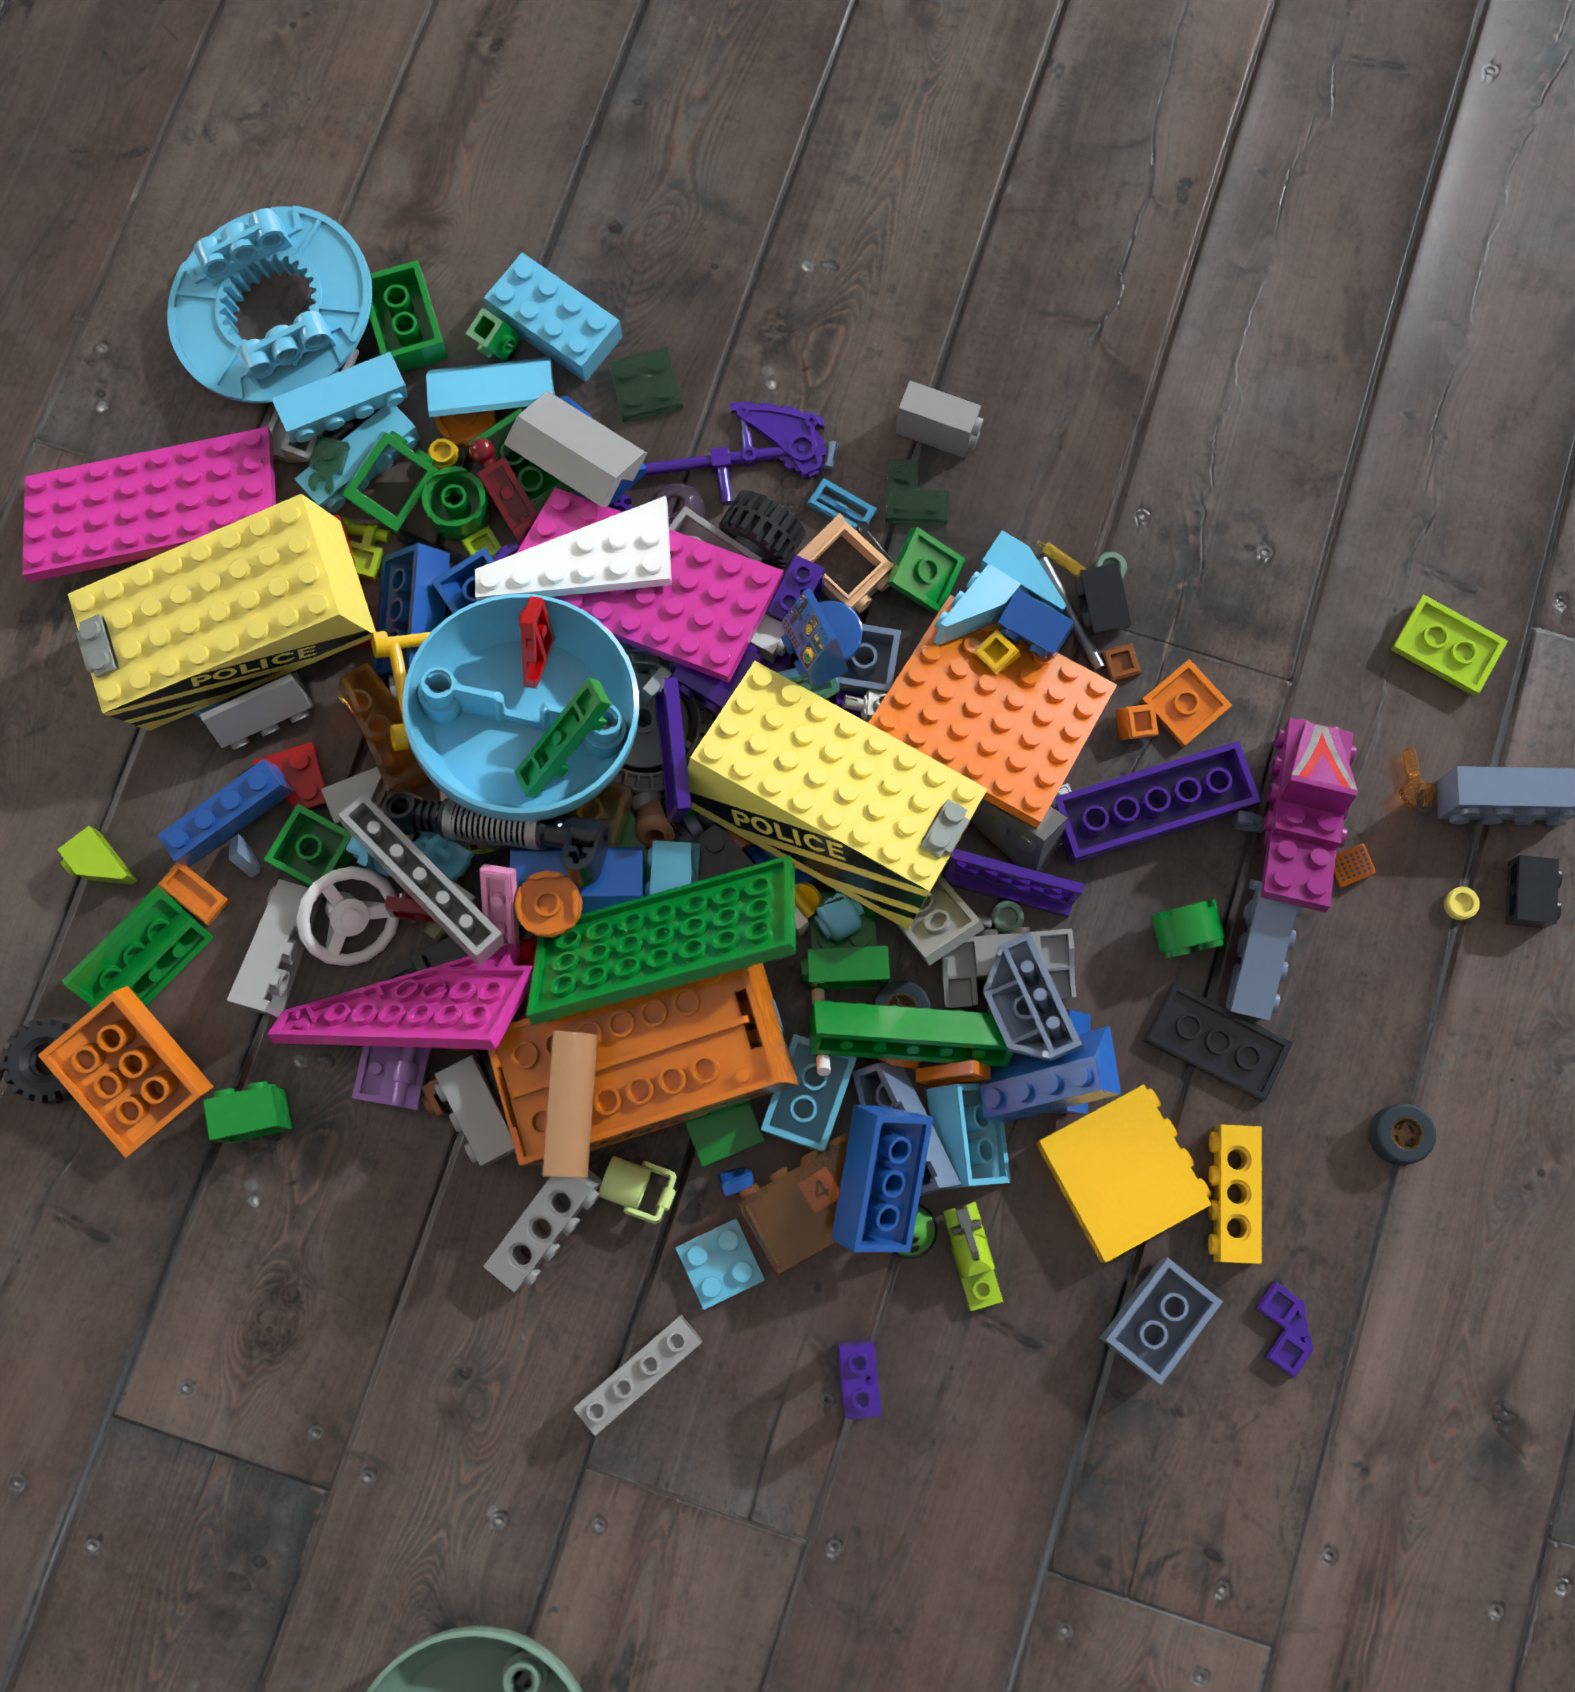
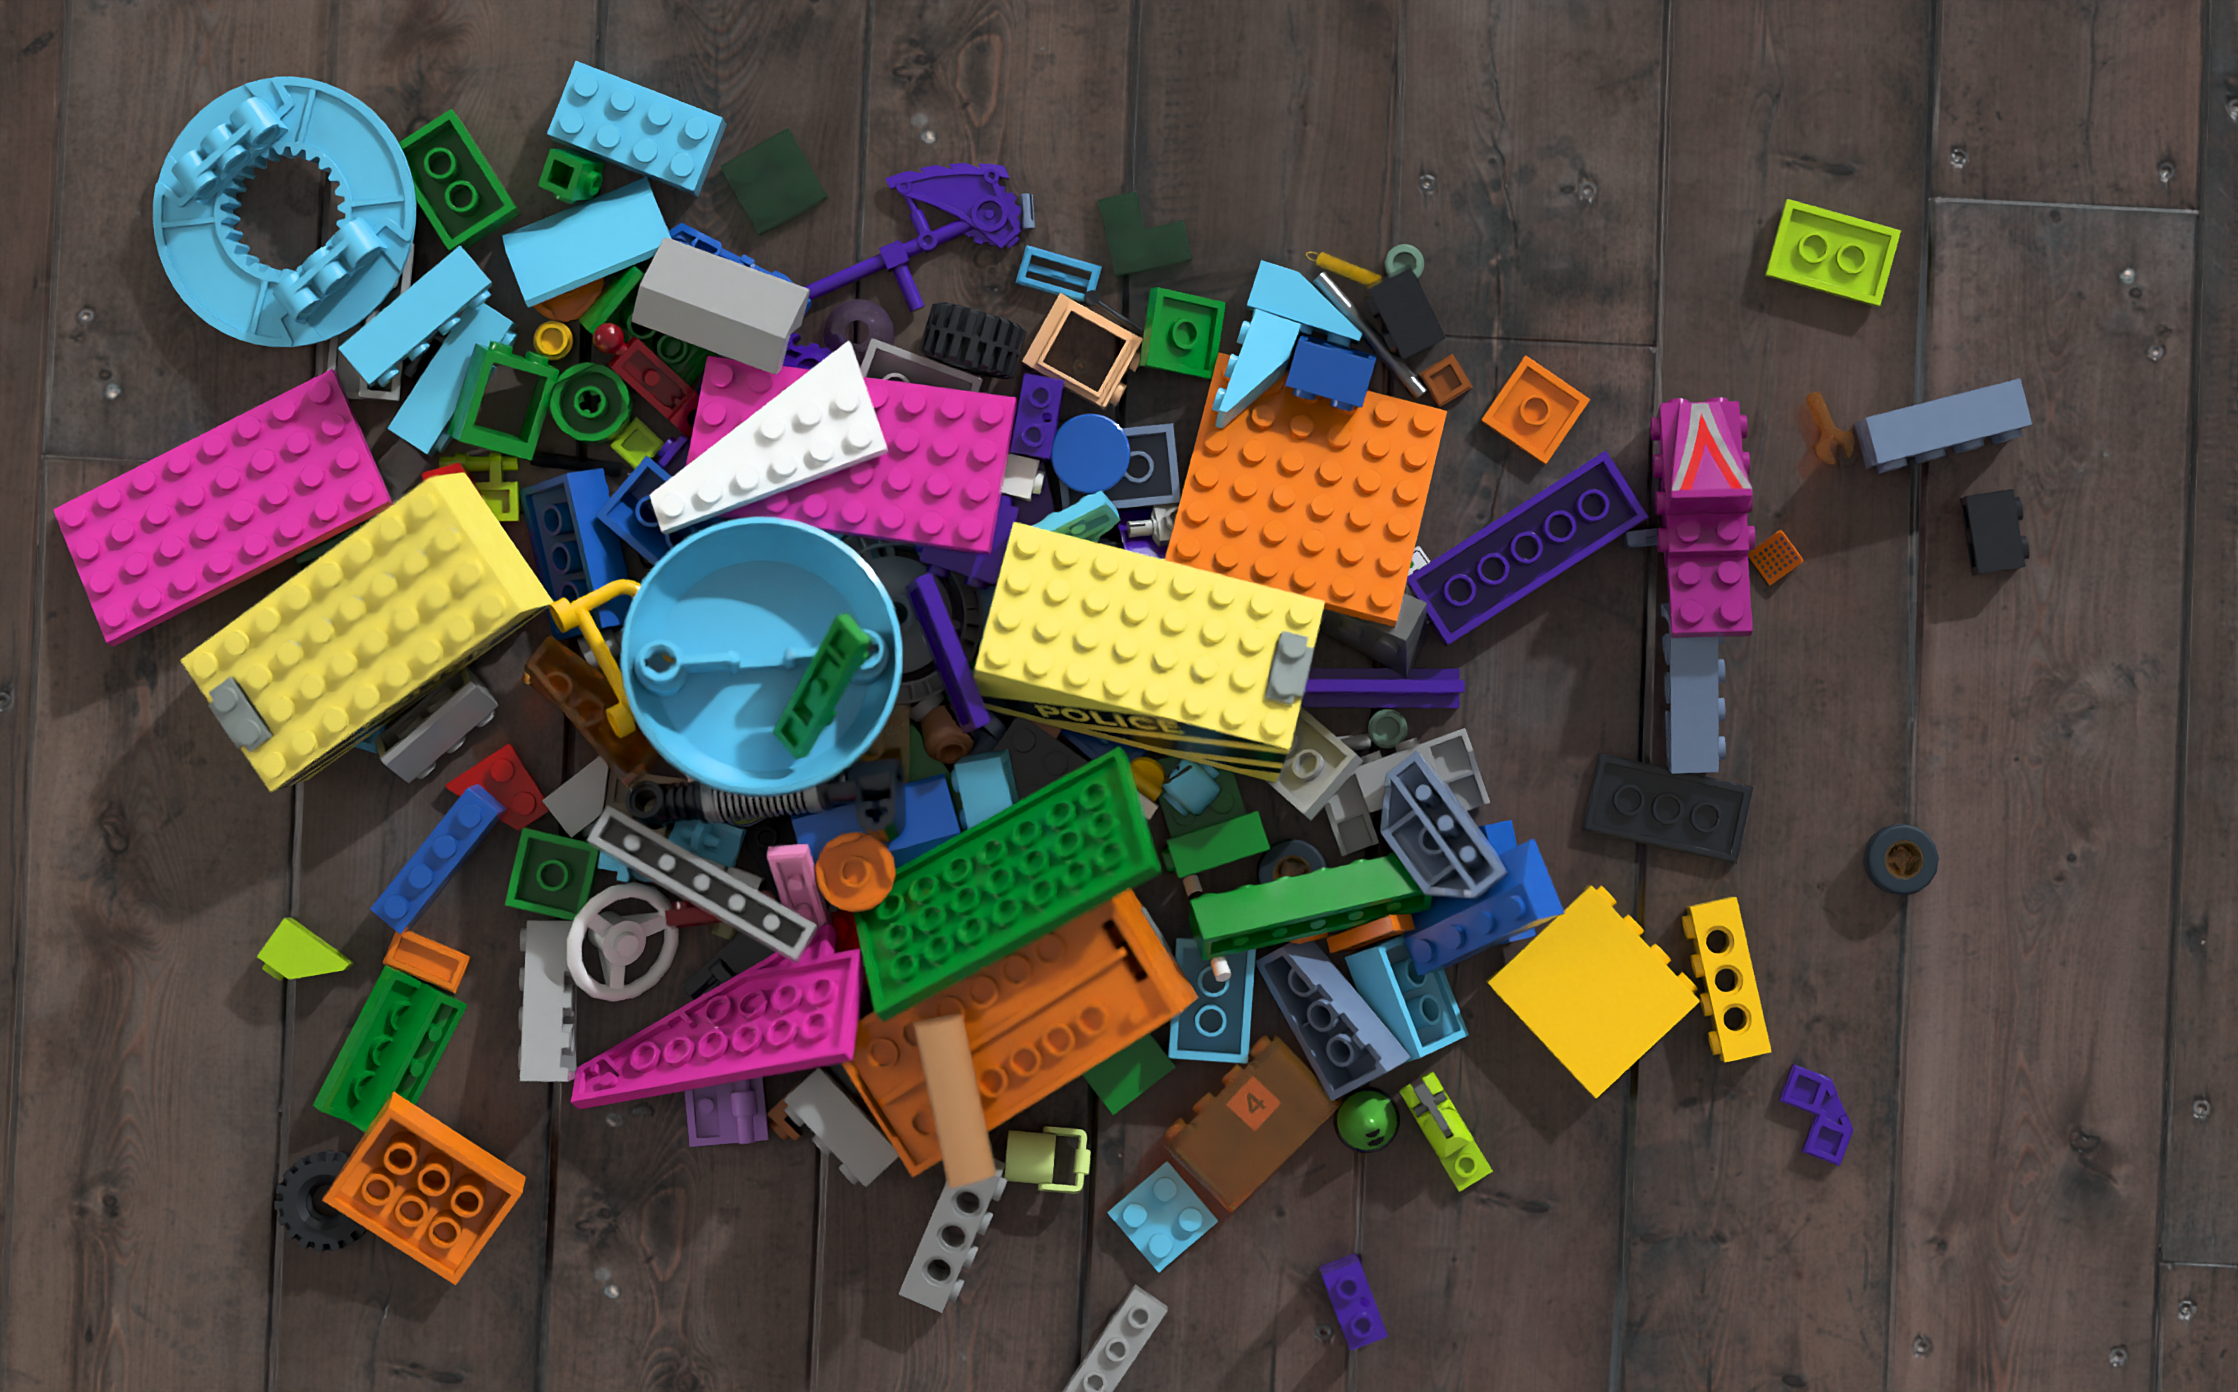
camera: 10 degrees left, 10 degrees up
(243, 856) = (472, 901): sand blue tile -> none
(248, 1113) = (581, 1198): green brick -> none
(327, 459) = (422, 393): clear green plate -> none
(536, 640) = (753, 572): red wing -> none
(650, 689) = (900, 575): light grey tile -> none
(735, 1180) = (1155, 1119): blue tile -> none
(812, 641) = (1076, 482): blue slope -> none
(882, 1179) = (1320, 1079): blue slope -> none
(939, 419) = (1149, 139): light grey brick -> none
(997, 652) = (1294, 418): yellow slope -> none
(1136, 722) = (1481, 451): orange slope -> none
(1161, 1320) = (1673, 1145): sand blue brick -> none
(1188, 926) = (1599, 689): green brick -> none
(1461, 903) = (1914, 566): light yellow tile -> none

